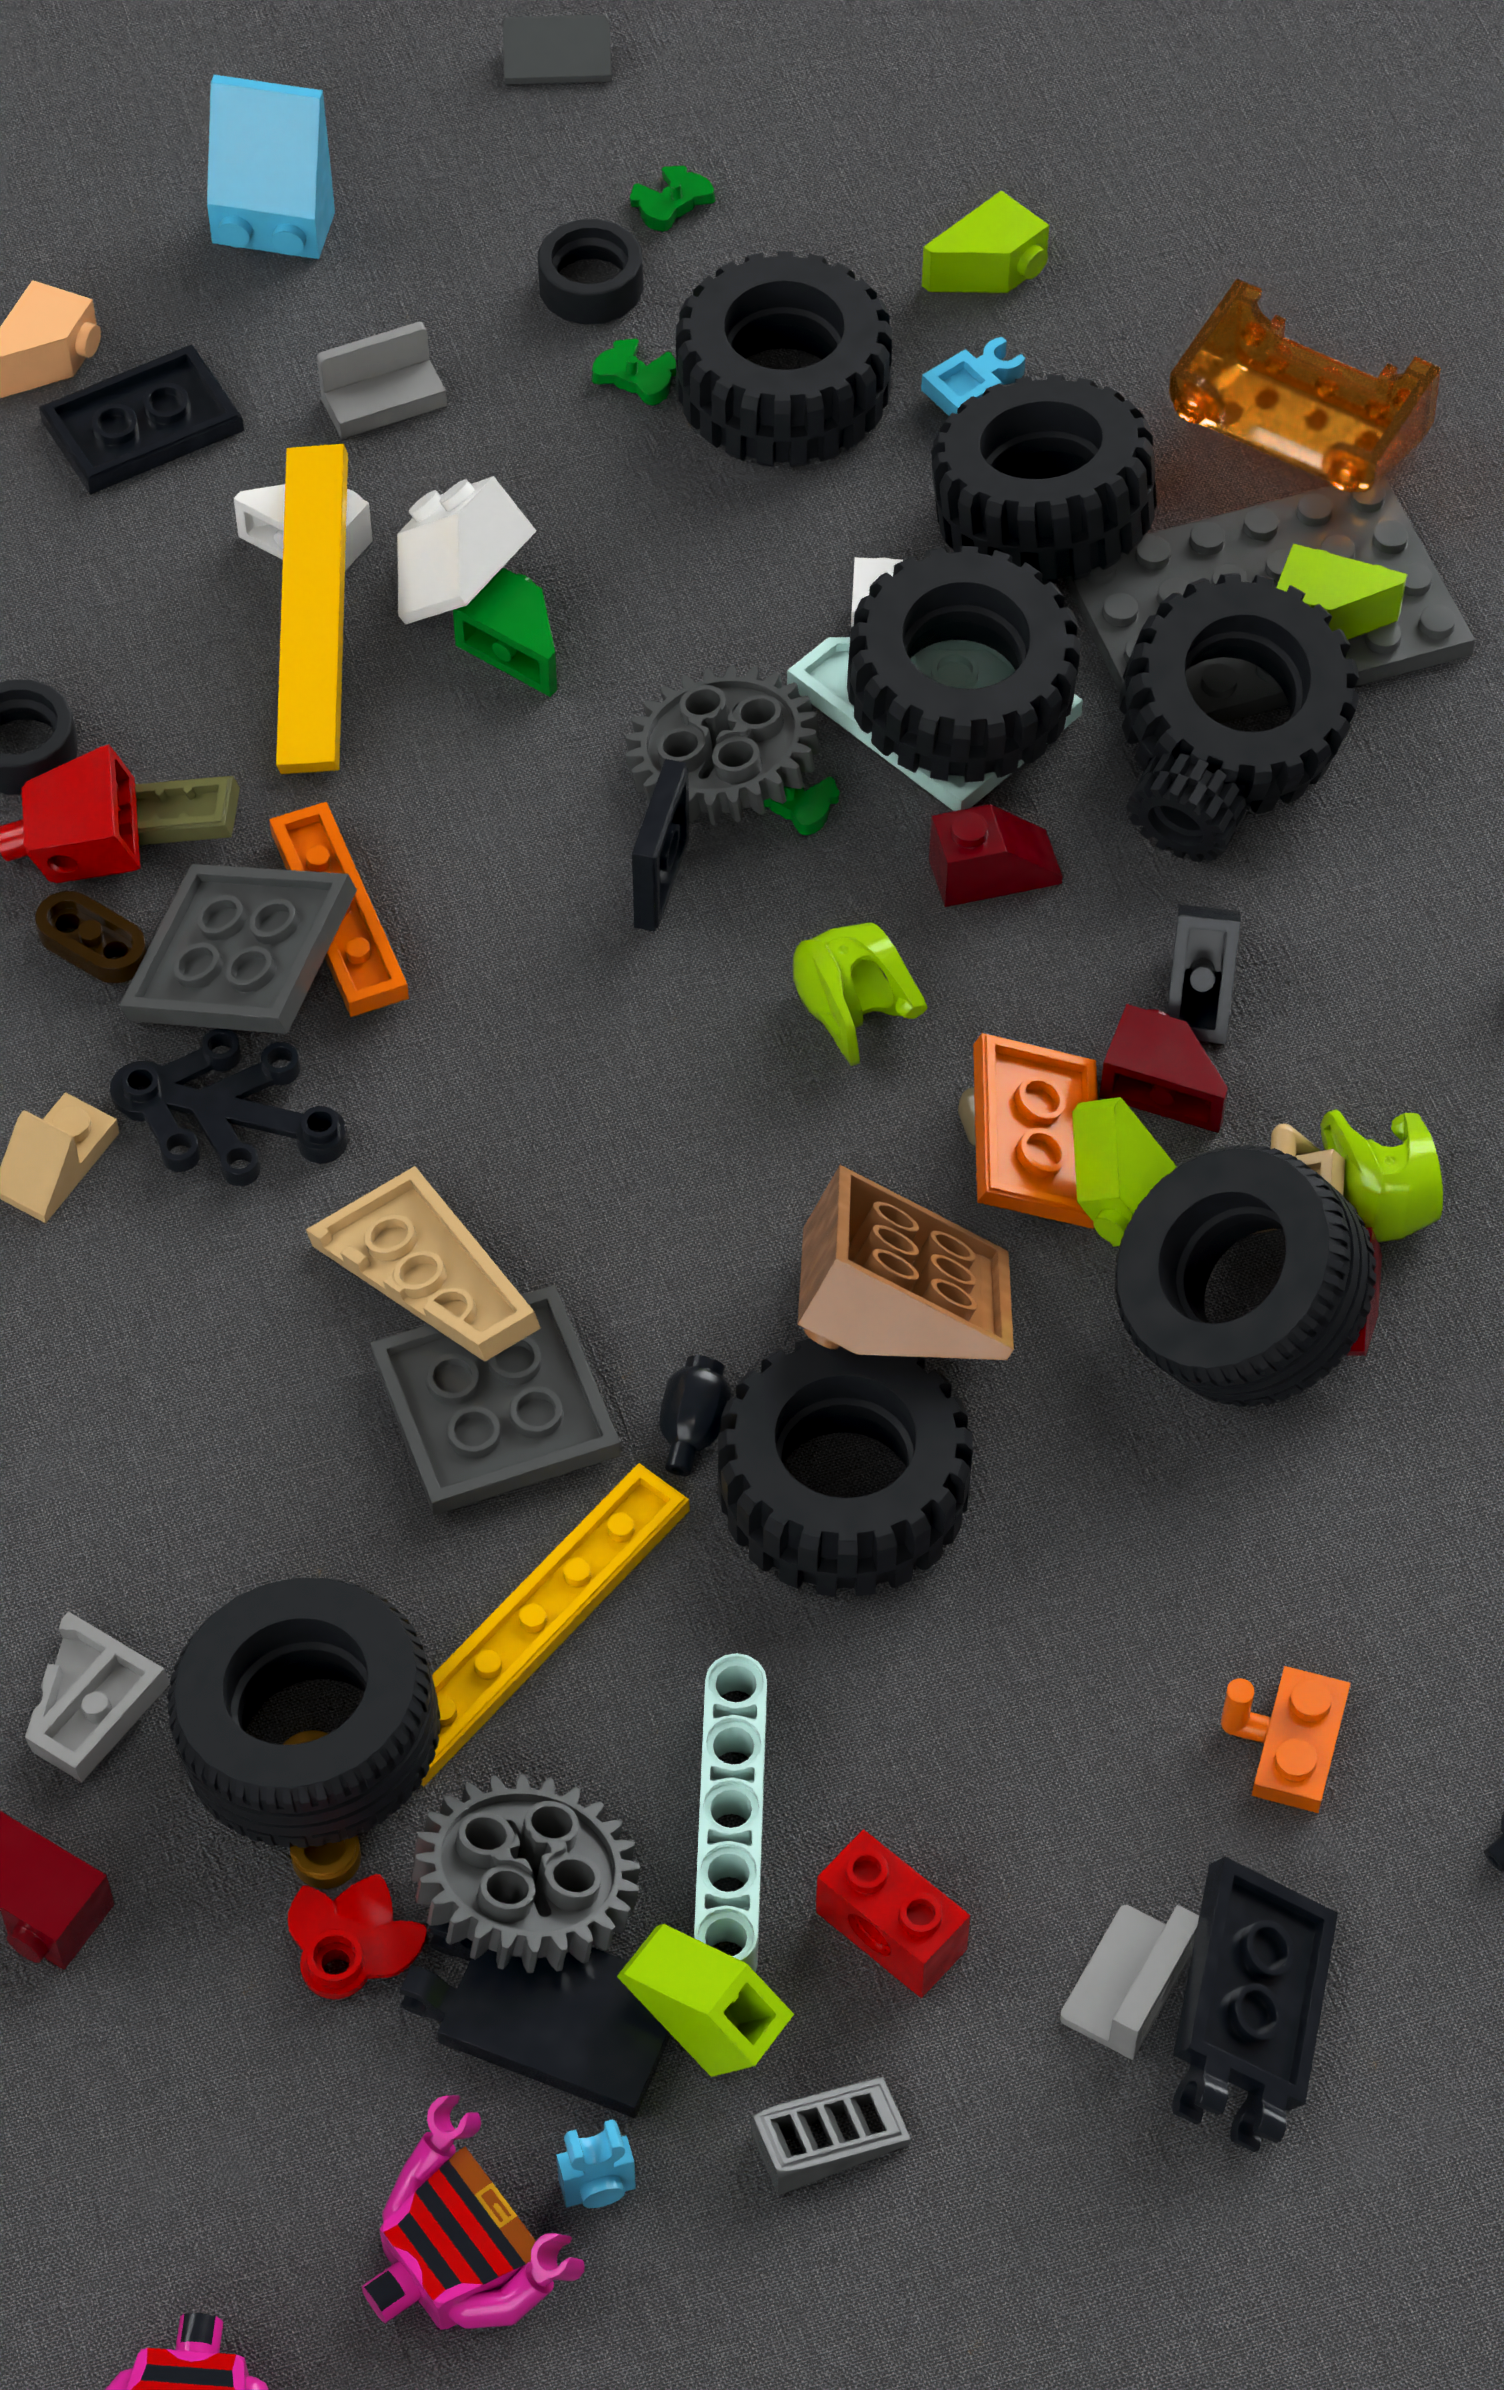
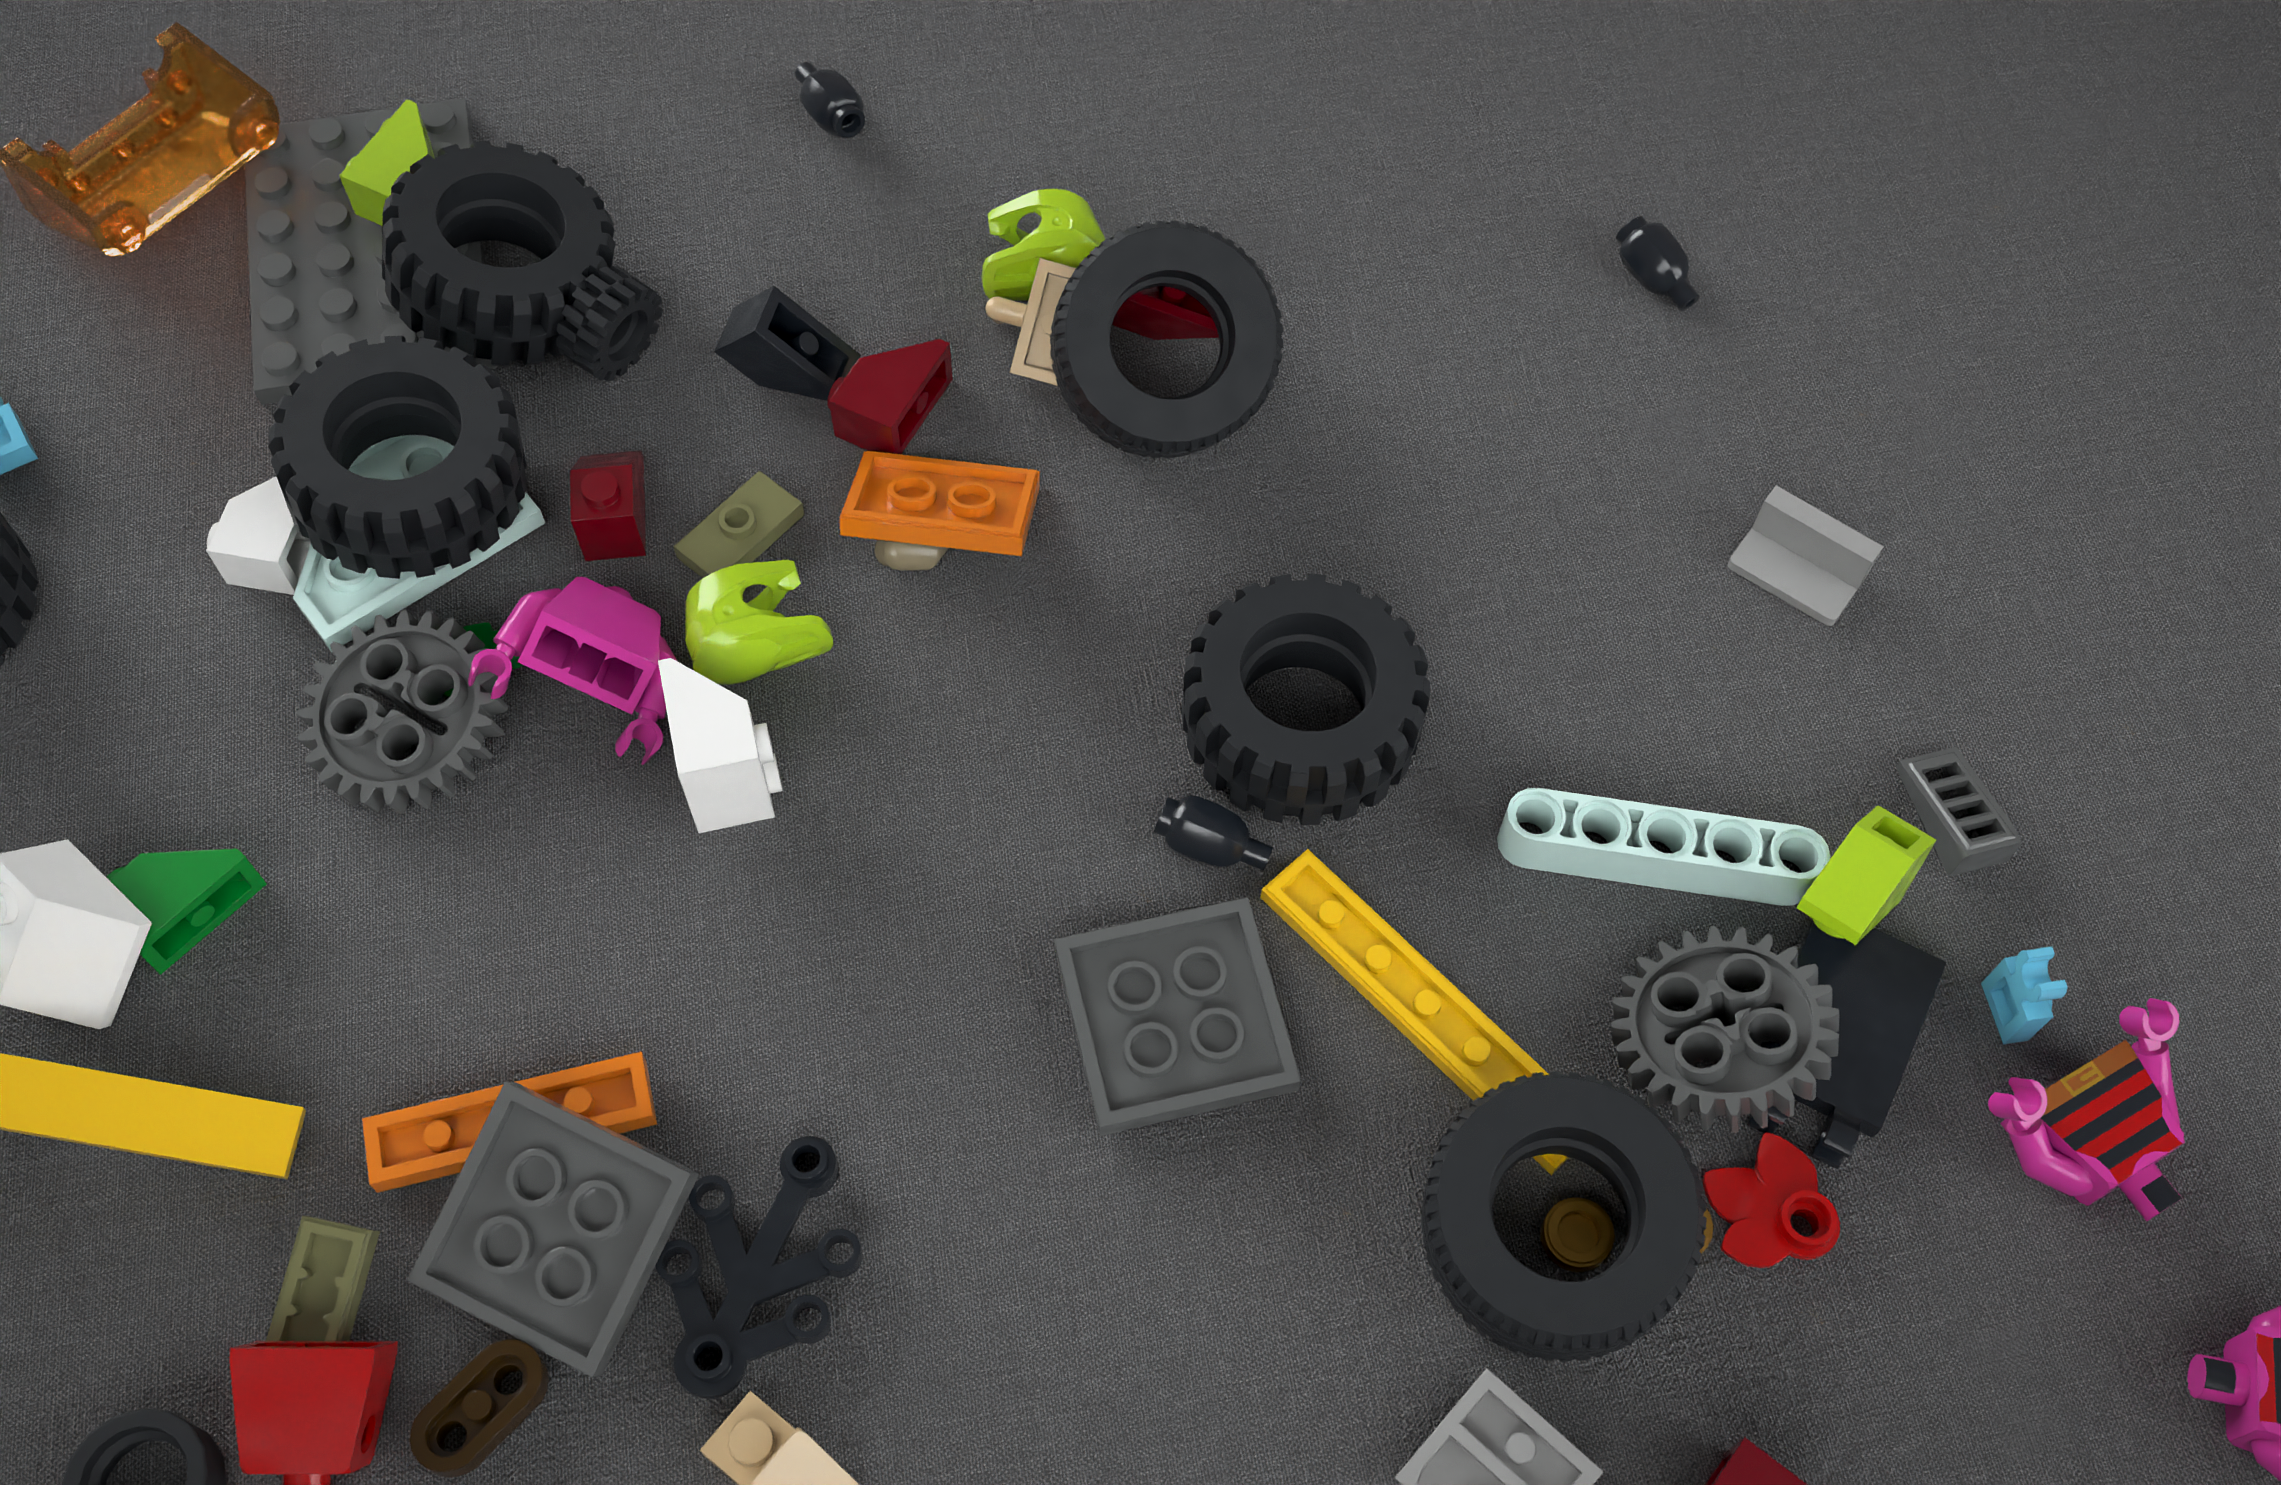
camera: 85 degrees left, 5 degrees up
(427, 1262) = (1006, 1062): tan wing -> none
(660, 845) = (533, 770): black tile -> none
(704, 974) = (718, 750): none -> white slope
(802, 864) = (593, 643): none -> dark pink torso
(892, 1913) = (1758, 724): red brick -> none
(900, 1278) = (1130, 613): medium nougat slope -> none
(981, 973) = (740, 527): none -> olive plate
(1046, 475) = (128, 329): black tyre -> none
(1114, 1164) = (1019, 432): lime slope -> none
(1252, 2001) = (1843, 471): black tile -> none
(1296, 1737) = (1575, 414): orange plate -> none

